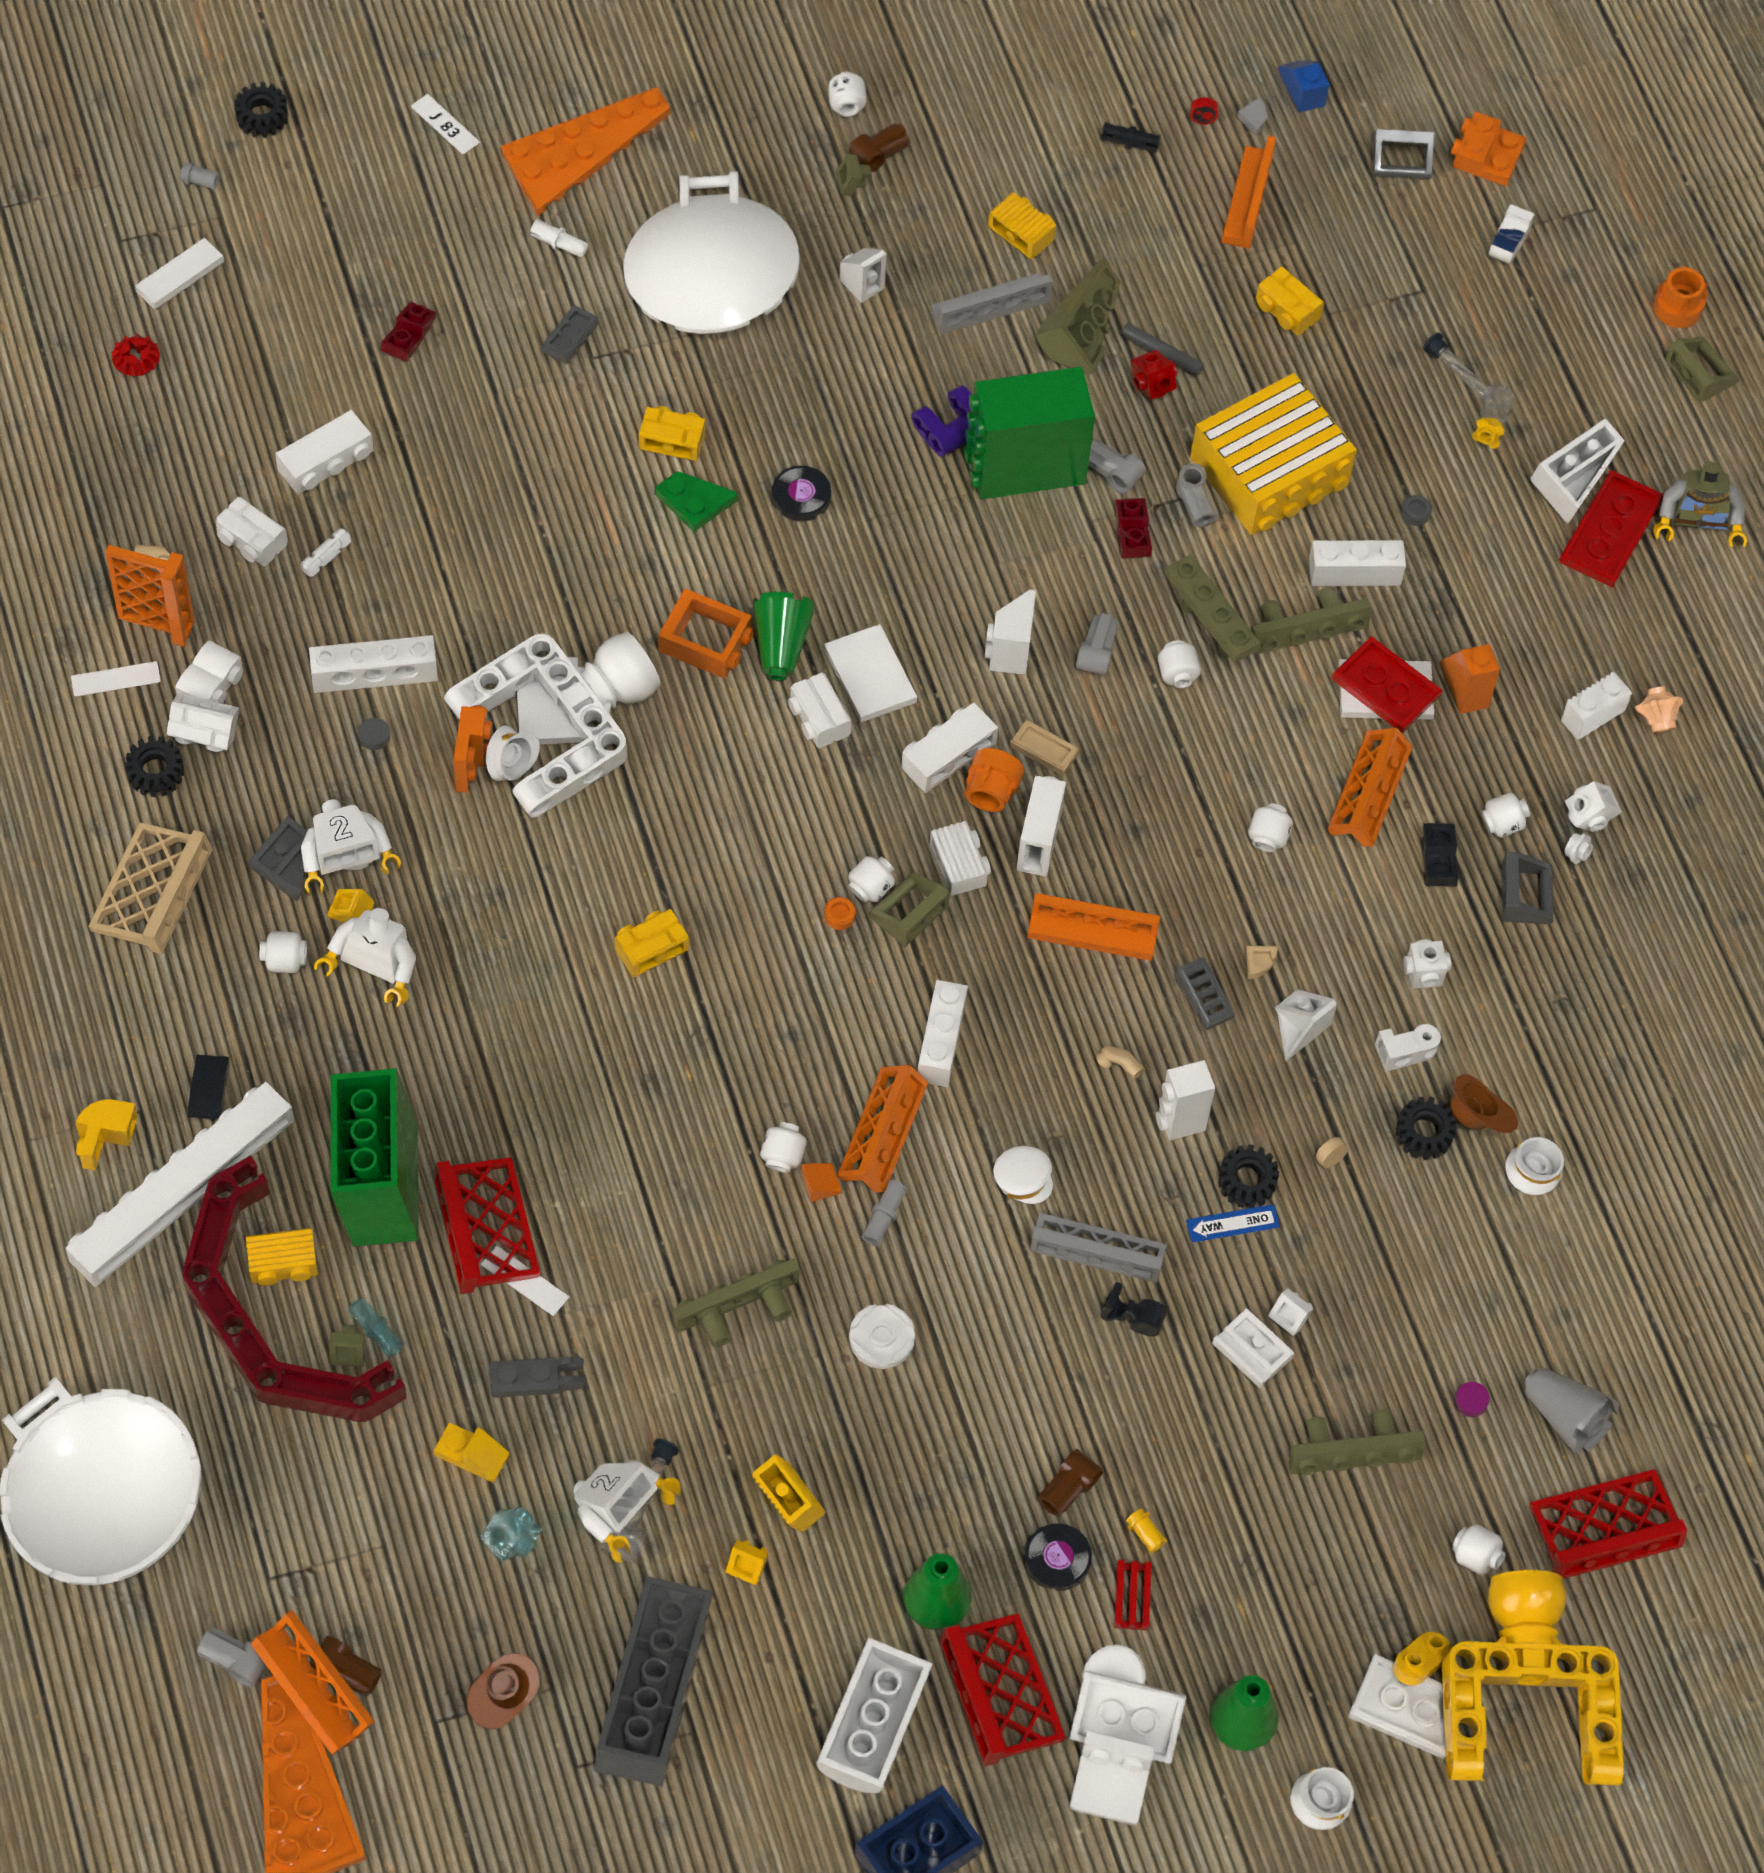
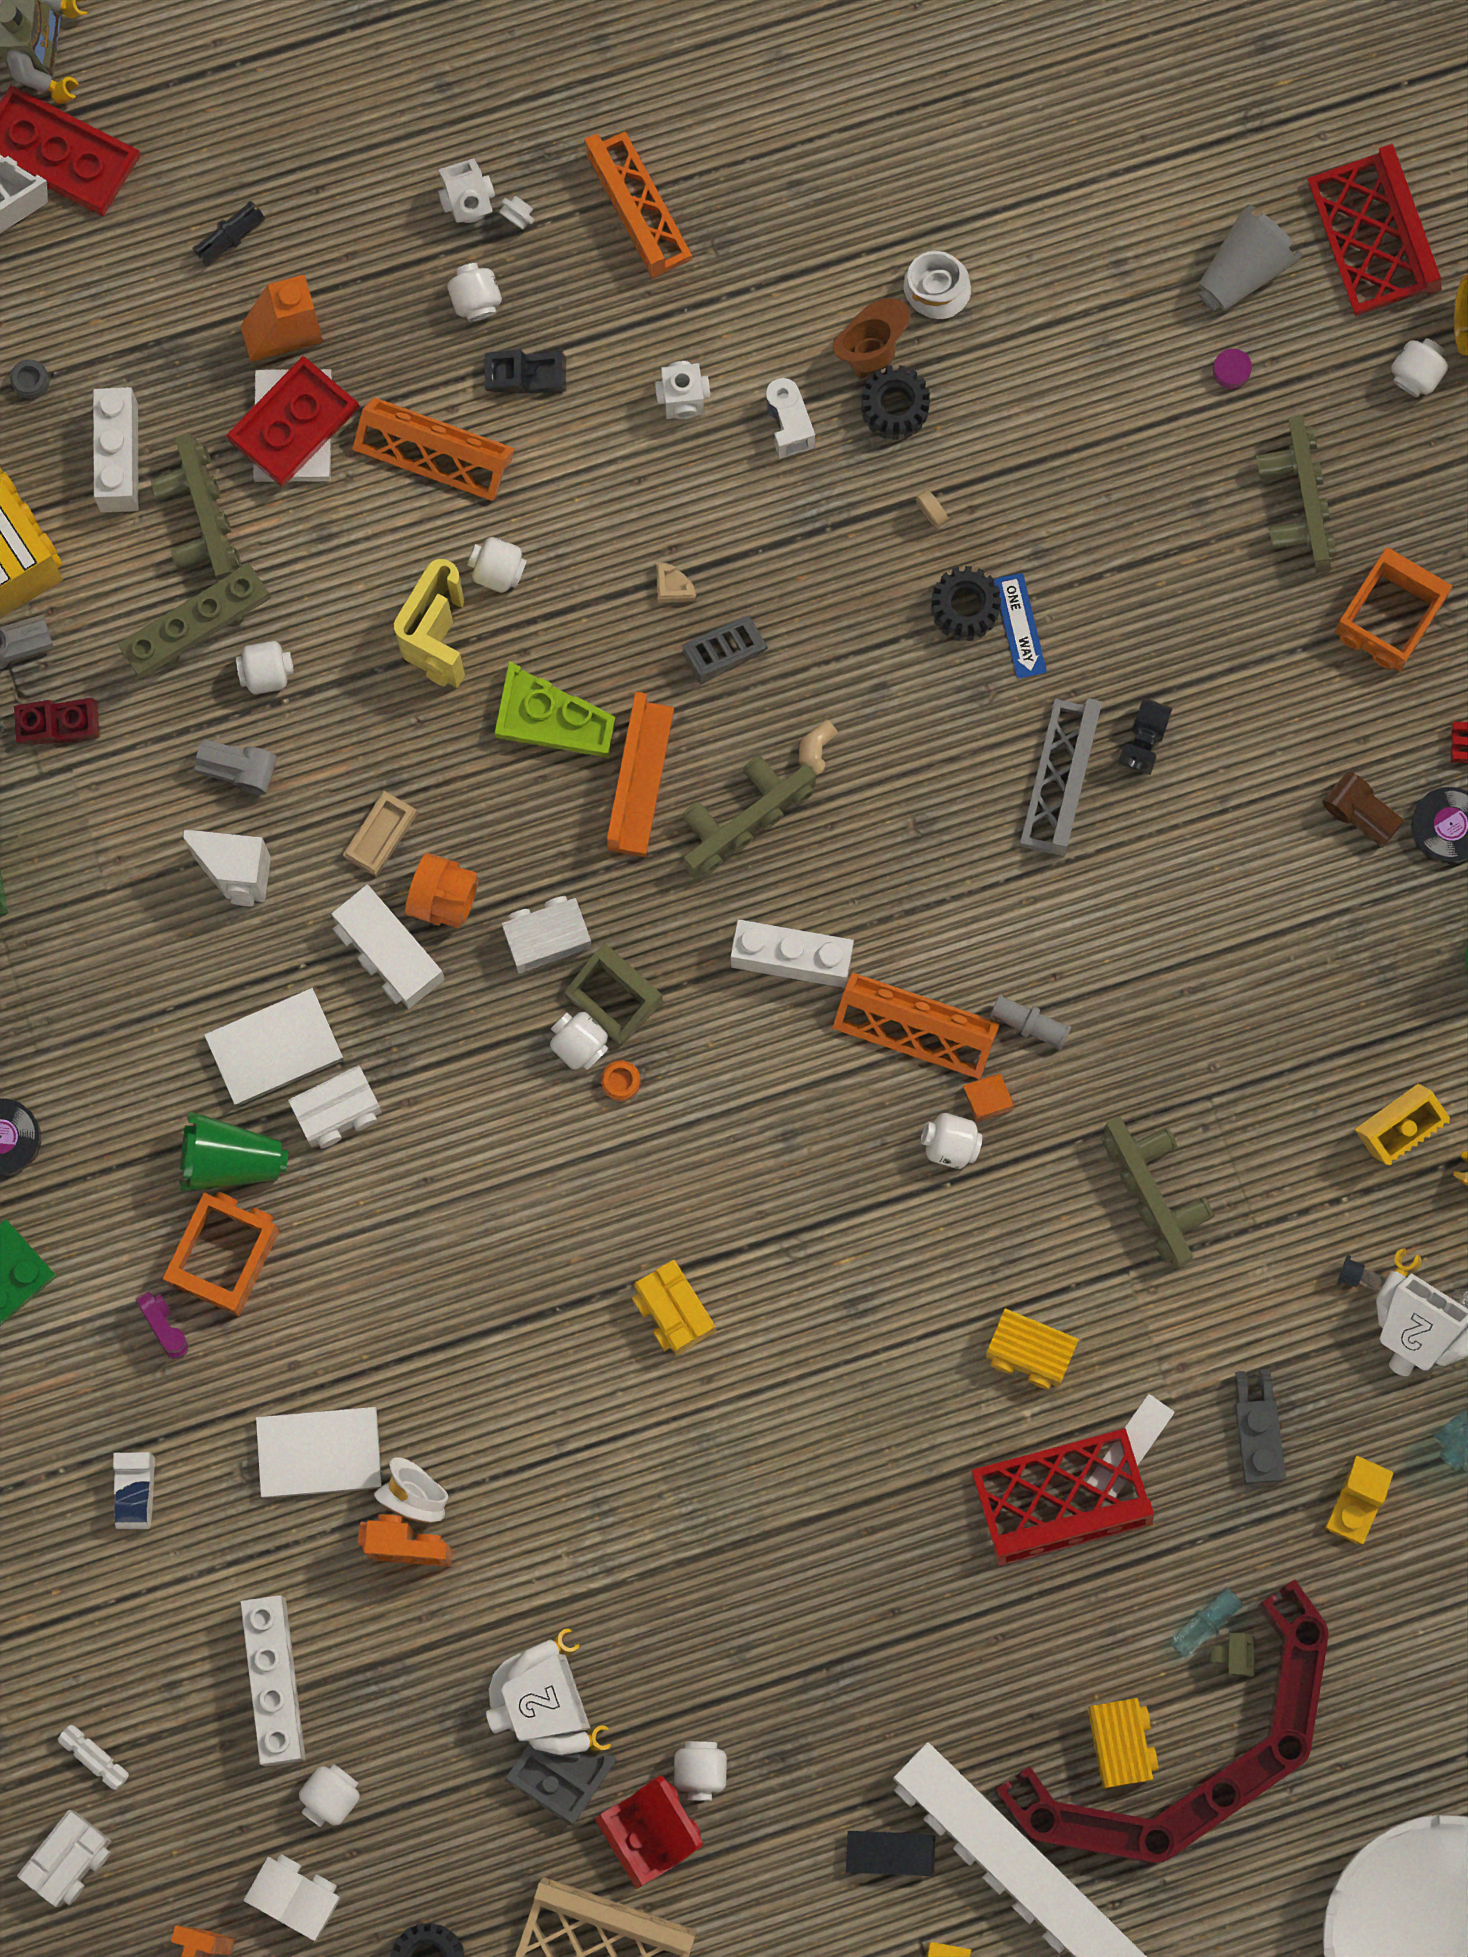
camera: 85 degrees left, 15 degrees up
(202, 722) = (366, 1899): white brick -> none
(232, 909) = (650, 1831): none -> red bracket
(284, 701) = (329, 1795): none -> white head
(349, 904) = (625, 1691): yellow slope -> none
(374, 733) = (371, 1676): dark grey tile -> none
(374, 1157) = (1016, 1627): green brick -> none
(375, 947) = (696, 1652): white torso -> none
(524, 576) = (133, 1489): none -> leg
(587, 694) = (321, 1396): white piece -> none
(608, 1201) = (1031, 1349): none -> yellow brick
(650, 592) = (155, 1312): none -> magenta plate
(882, 1336) = (1185, 1024): white tile -> none
(1024, 1174) = (973, 859): white piece -> none
(1041, 825) = (507, 832): white brick -> none
(1061, 1015) = (738, 833): none -> olive plate
(1143, 864) = (548, 717): none -> lime wing
(1146, 1530) = (1407, 732): yellow pin -> none
(1185, 1100) = (891, 664): white brick -> none
(1214, 769) = (426, 621): none -> light yellow piece
(1253, 1348) = (1184, 604): white plate -> none
(1263, 1490) = (1410, 578): none -> orange window
(1290, 1311) = (1138, 559): white tile -> none
(1302, 1019) = (756, 536): white slope -> none
(1512, 908) = (573, 291): dark grey tile -> none
(1547, 644) = (228, 233): none -> black pin
(1589, 927) = (613, 181): none -> orange fence
(1596, 705) = (321, 180): white brick -> none
(1660, 709) = (326, 107): light nougat rock -> none

